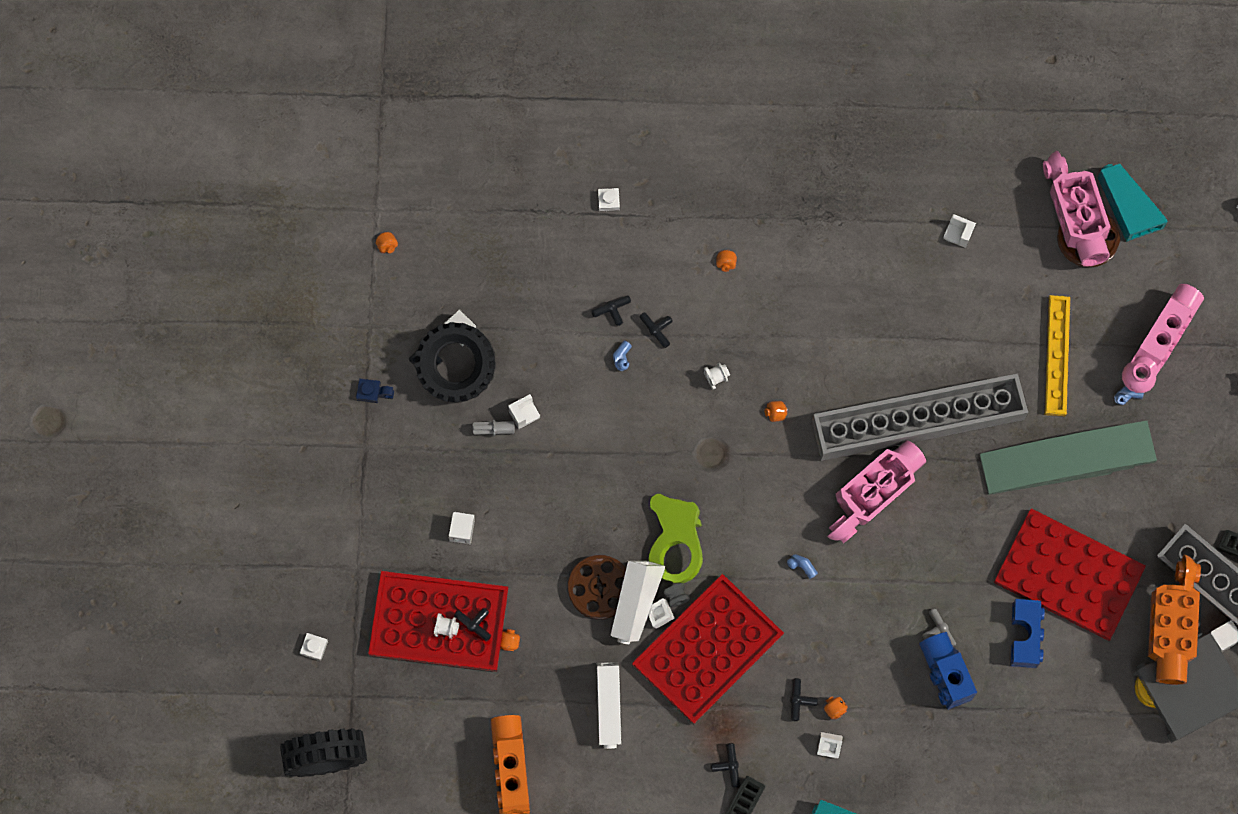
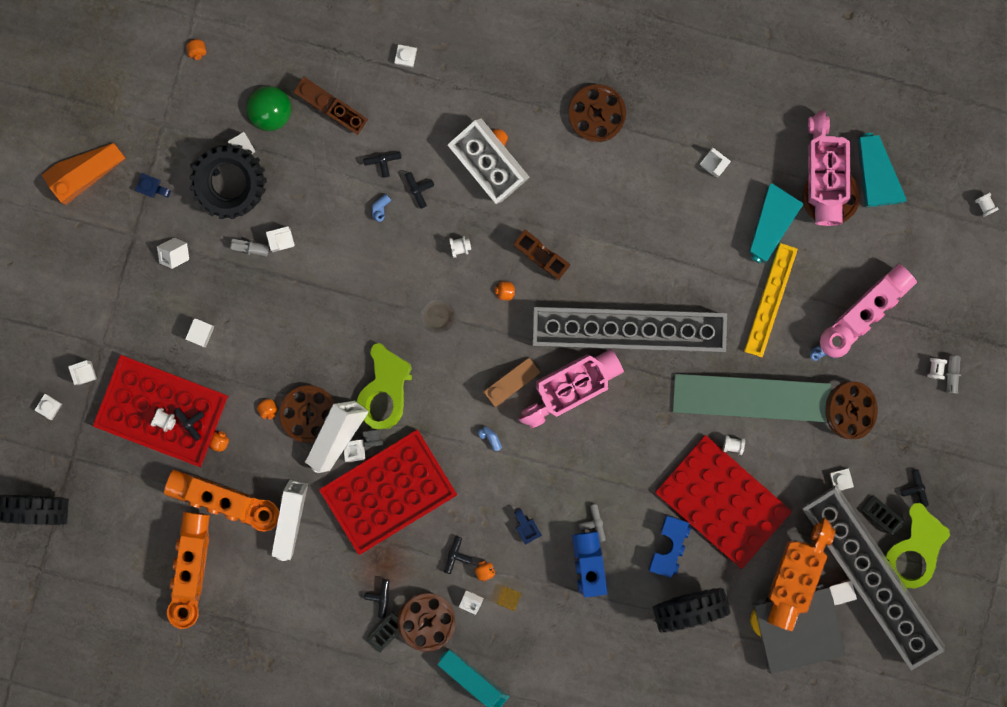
camera: 15 degrees right, 15 degrees up
(291, 395) = (78, 173): none -> orange wedge
(344, 599) = (82, 372): none -> white panel
(412, 452) = (173, 253): none -> white panel
(477, 284) = (268, 108): none -> green piece
(543, 266) = (330, 106): none -> reddish brown slope
(553, 593) = (267, 409): none -> orange piece
(556, 700) = (242, 506): none -> orange brick
(724, 280) = (488, 161): none -> white brick
(778, 776) = (417, 620): none -> reddish brown wedge
(793, 359) = (541, 255): none -> reddish brown arch
(808, 503) = (512, 382): none -> medium nougat slope
(824, 219) = (595, 122): none -> reddish brown wedge
(869, 652) = (528, 529): none -> dark blue plate
(869, 732) = (509, 598): none -> clear yellow tile
(1037, 272) = (773, 221): none -> teal slope
(1063, 511) = (733, 445): none -> white bush
(1071, 687) = (691, 610): none -> black tyre
(1168, 444) = (845, 407): none -> reddish brown wedge
(1189, 518) = (842, 479): none -> white plate

